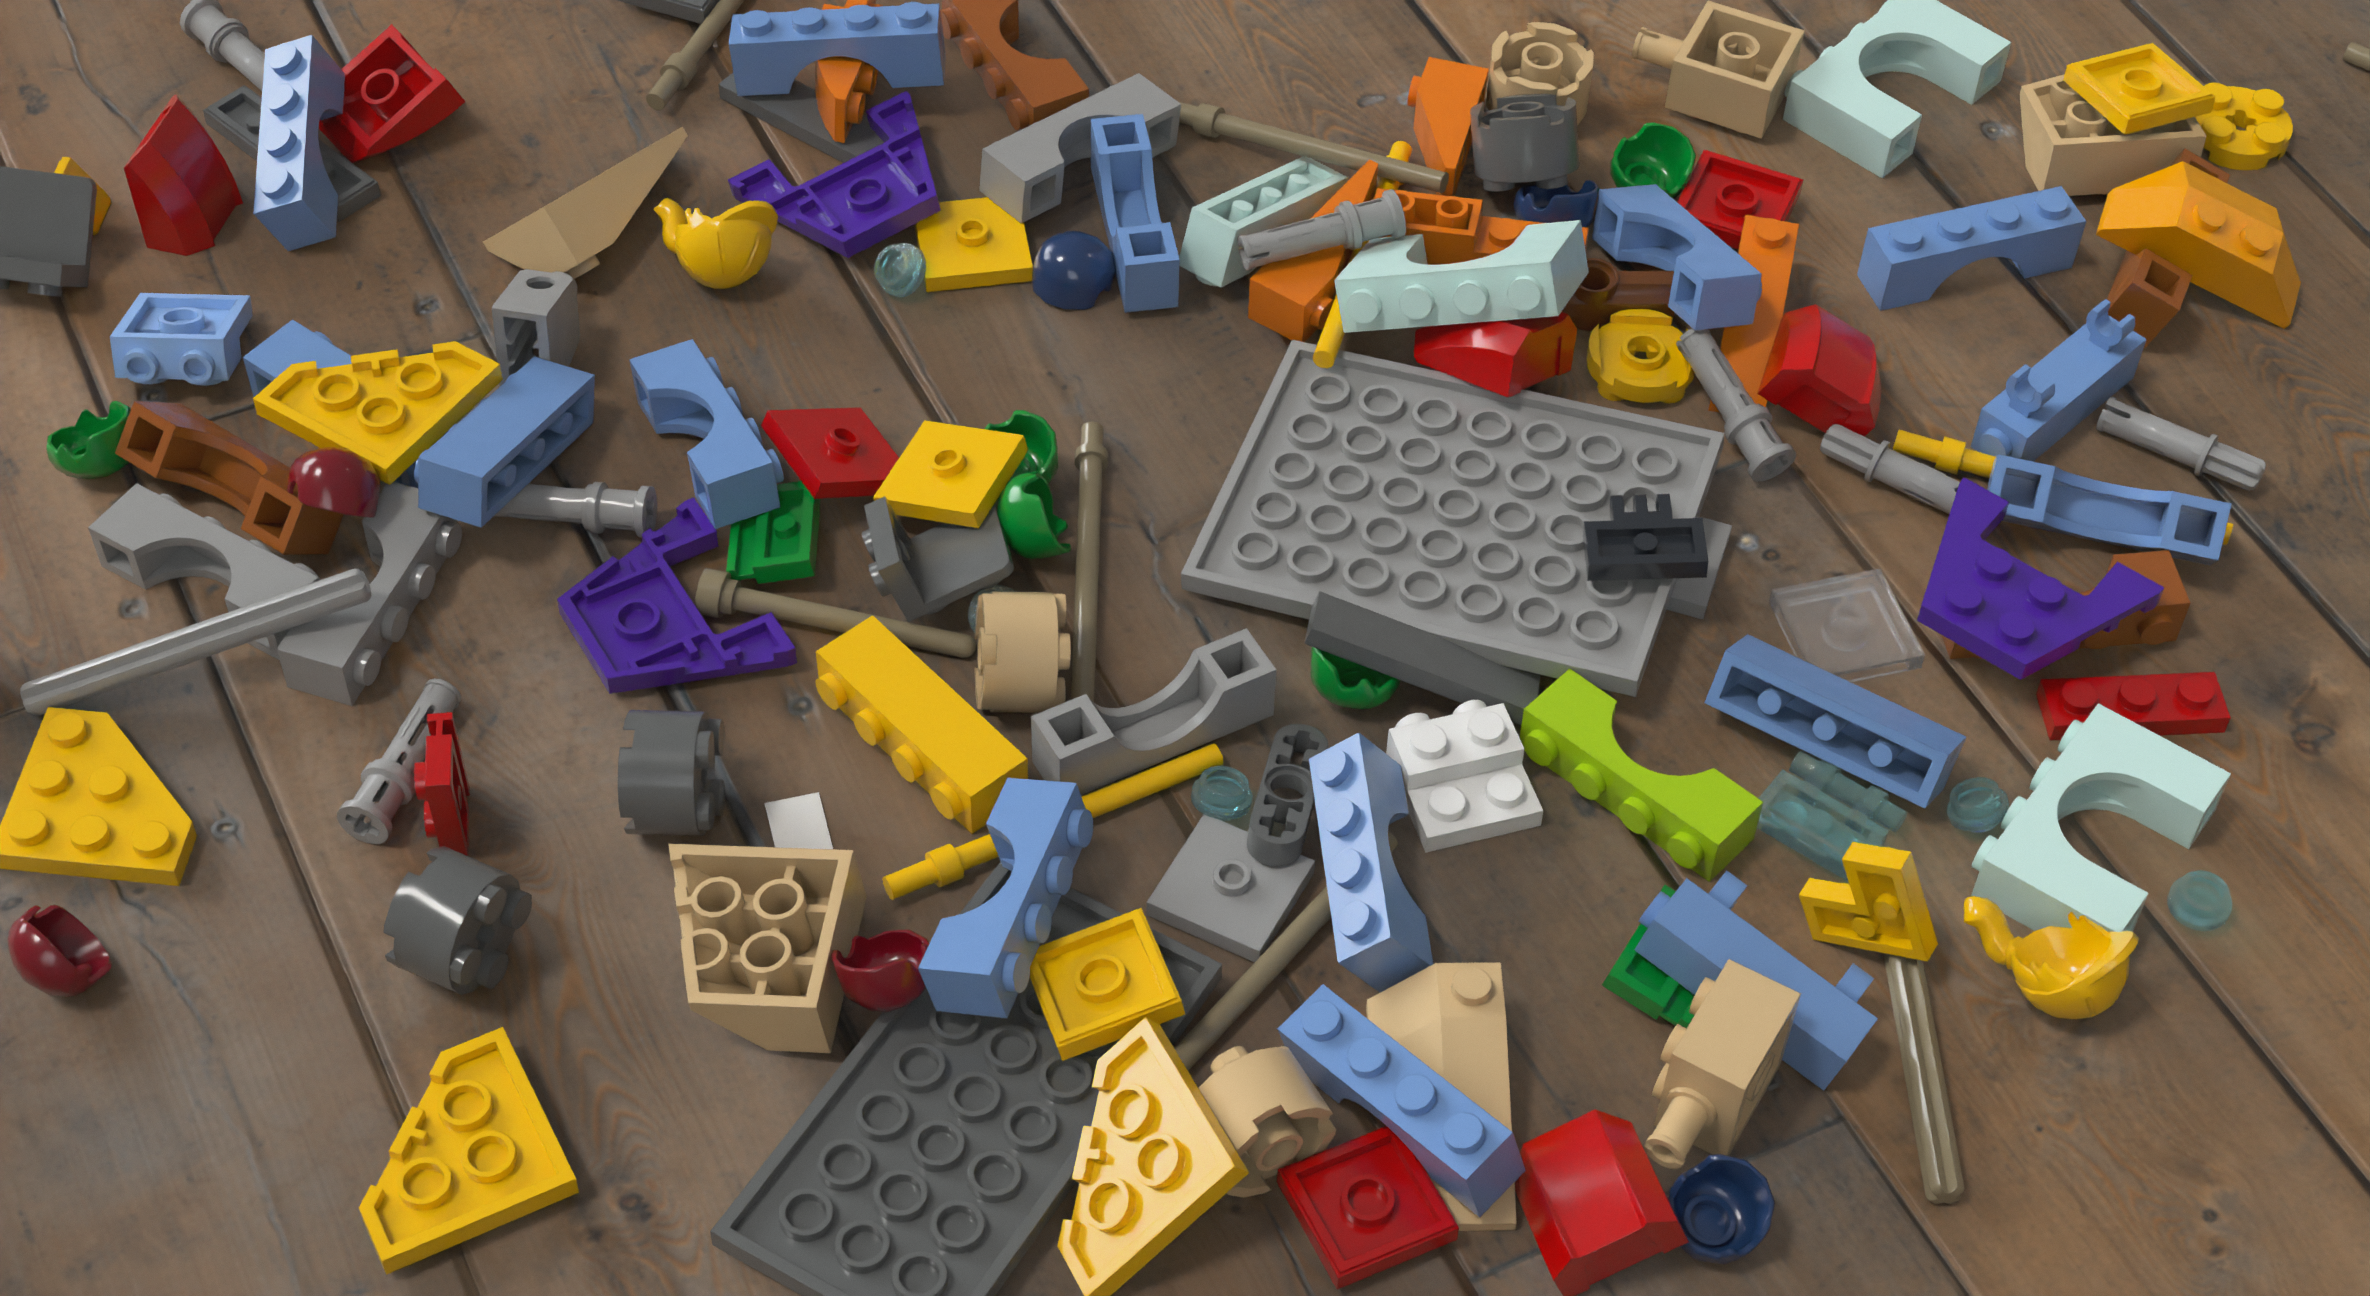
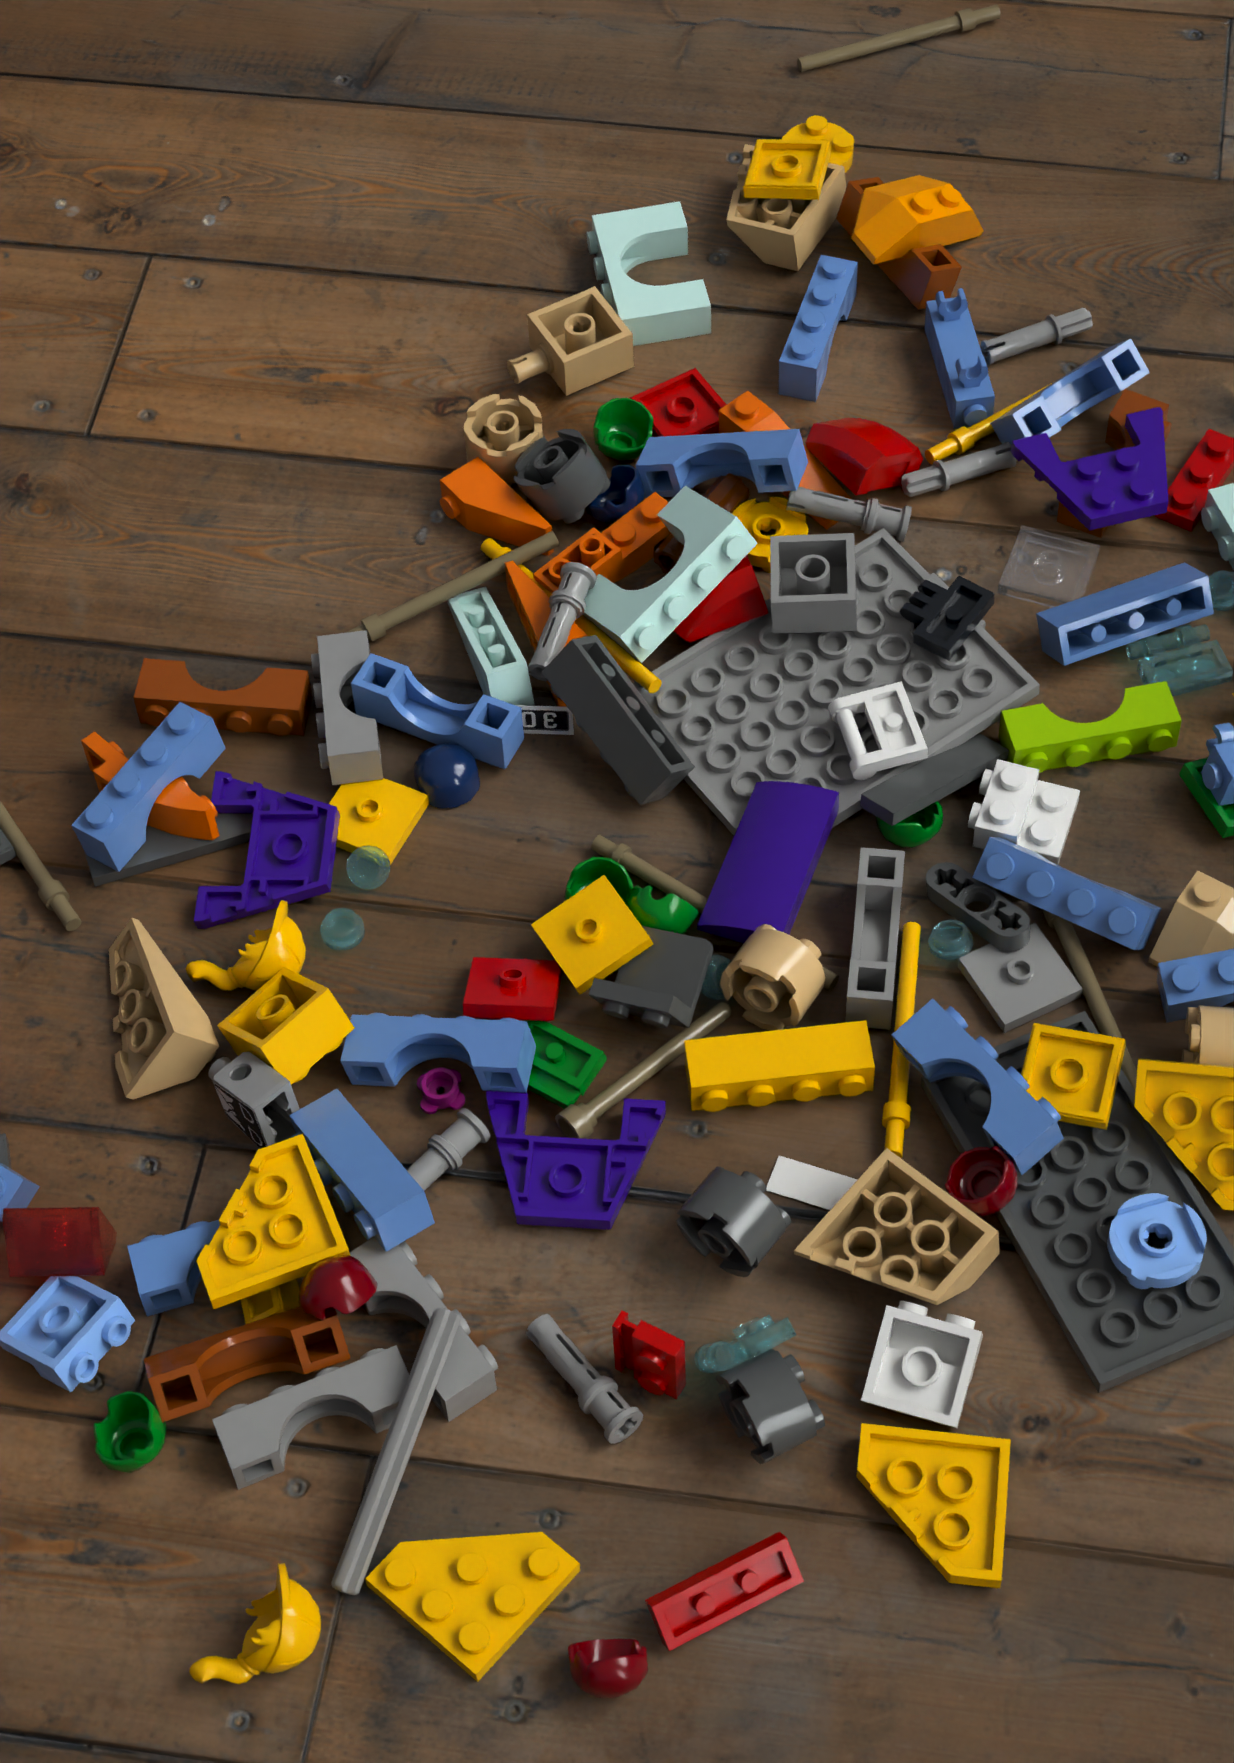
camera: 50 degrees left, 5 degrees up
(214, 1012) = (724, 1590): none -> red plate
(263, 272) = (57, 1241): none -> clear red slope
(523, 859) = (750, 1341): none -> clear light blue plate
(621, 1046) = (922, 1364): none -> white plate
(633, 298) = (288, 1024): none -> yellow brick
(669, 467) = (437, 1080): none -> magenta plate
(811, 291) = (342, 929): none -> clear light blue plate
(936, 1218) = (1152, 1266): none -> light blue plate
(1176, 578) = (770, 859): none -> dark purple slope
(1204, 298) = (547, 720): none -> sticker
(1238, 344) = (617, 719): none -> dark grey brick
(1441, 577) = (891, 724): none -> white plate
(1565, 399) = (813, 583): none -> light grey brick

